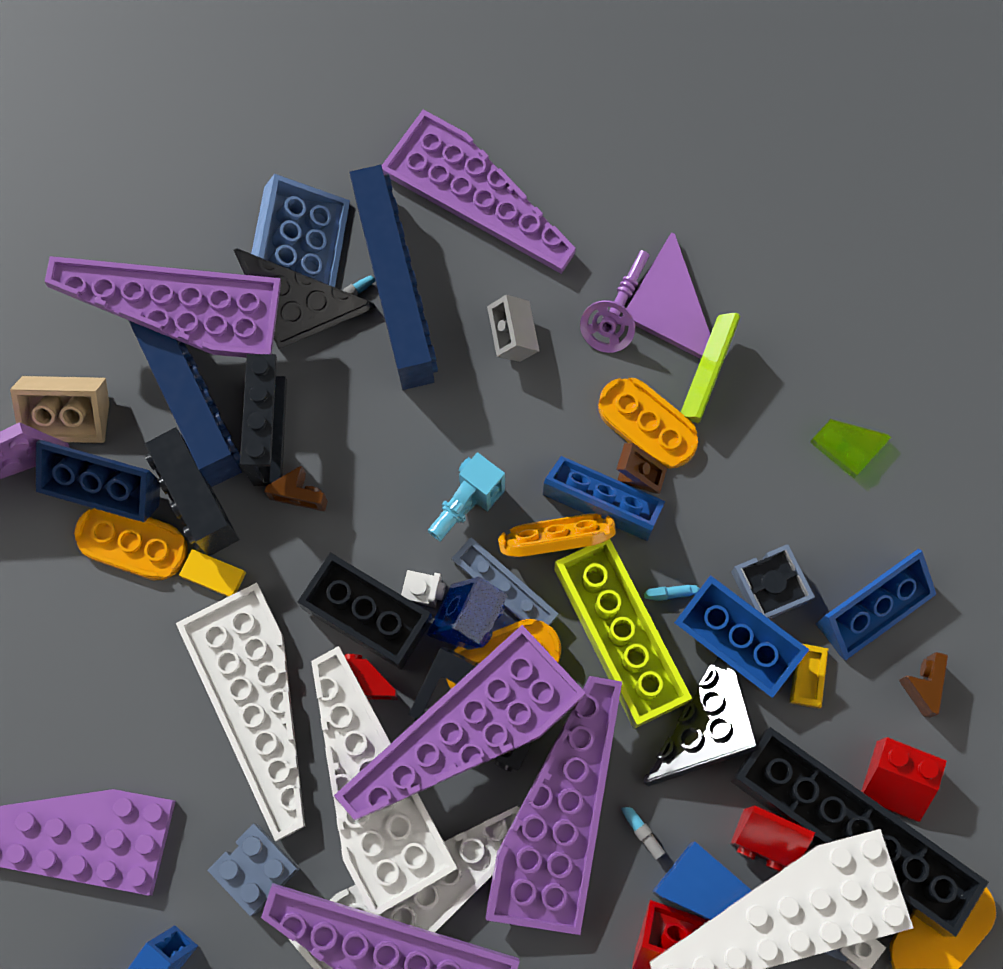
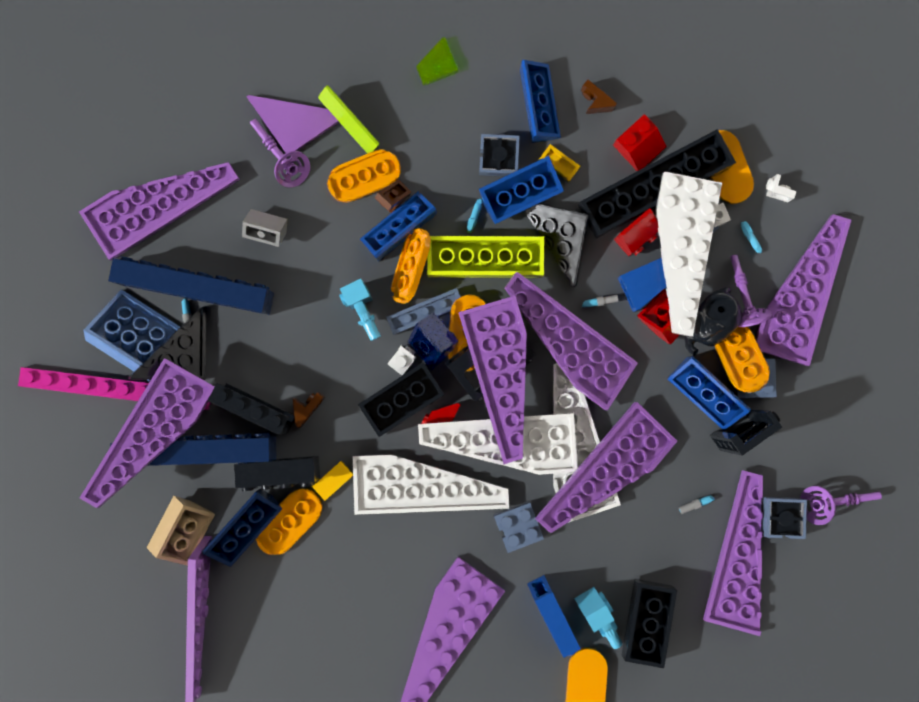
camera: 65 degrees left, 15 degrees up
(206, 209) = (83, 384): none -> dark pink plate

